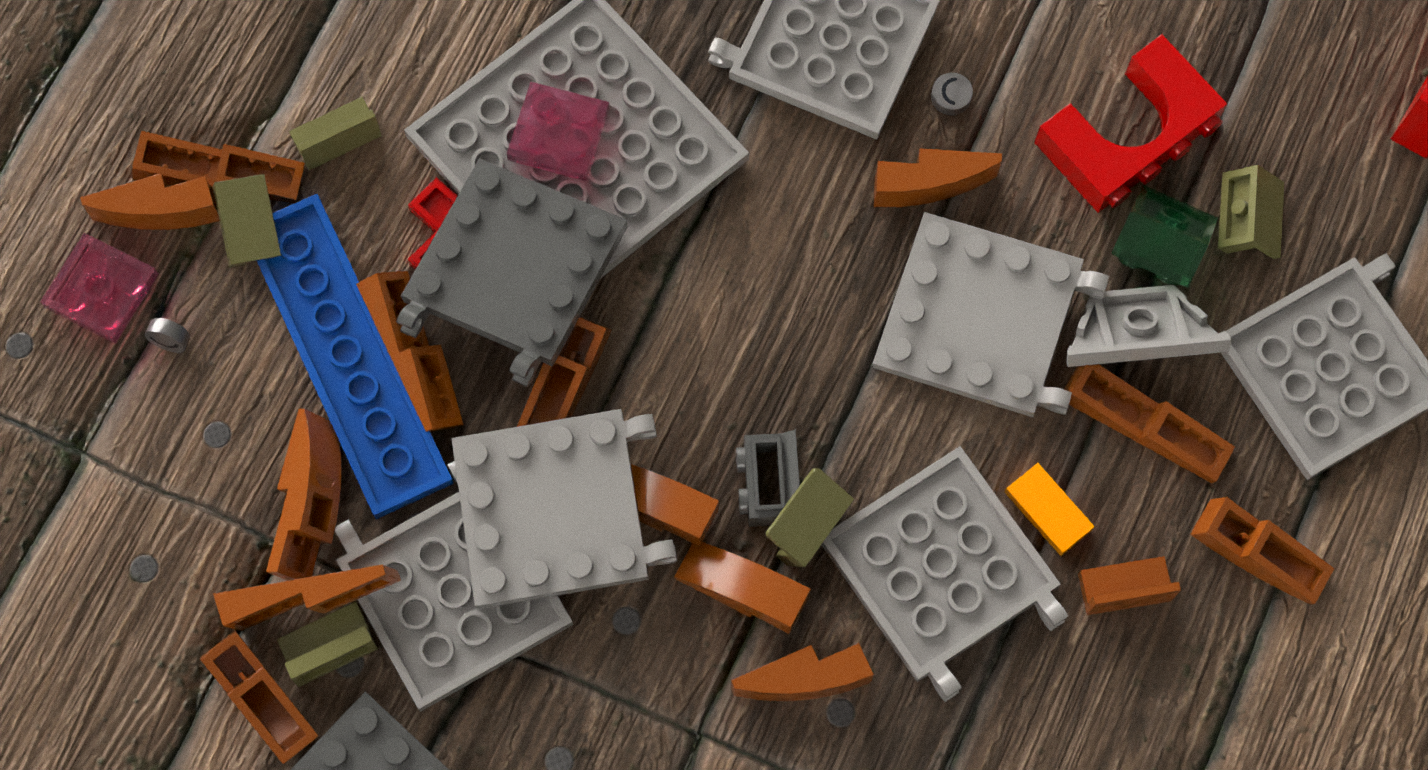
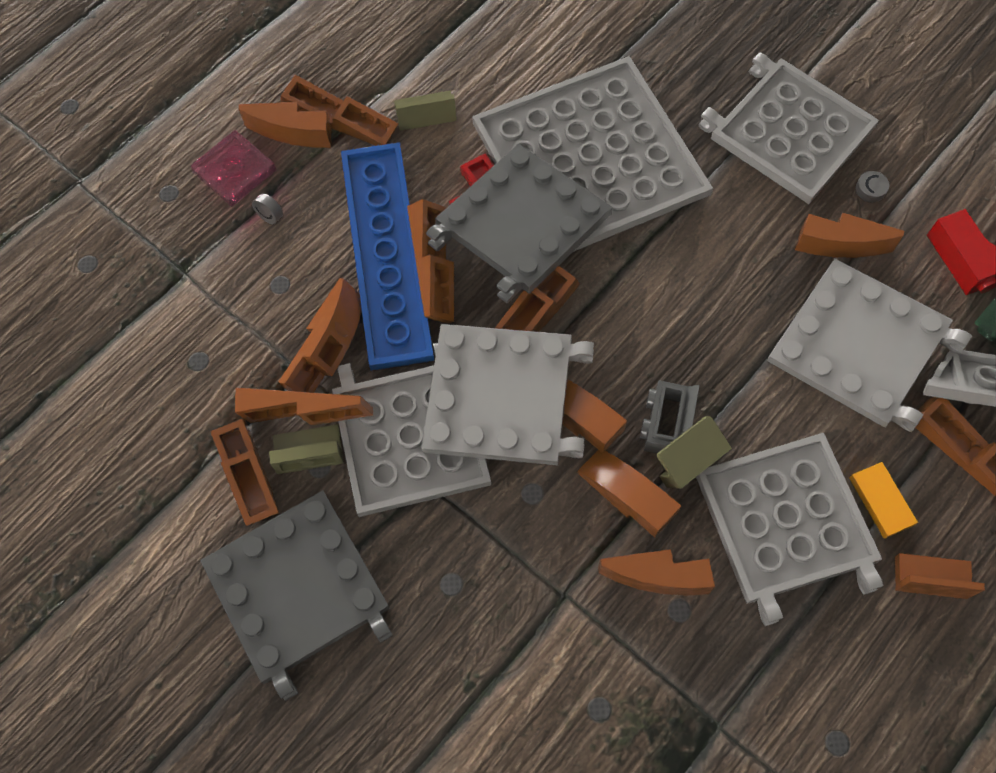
camera: 20 degrees right, 5 degrees down
(246, 220) = (344, 144): olive panel -> none
(558, 131) = (579, 140): clear pink plate -> none

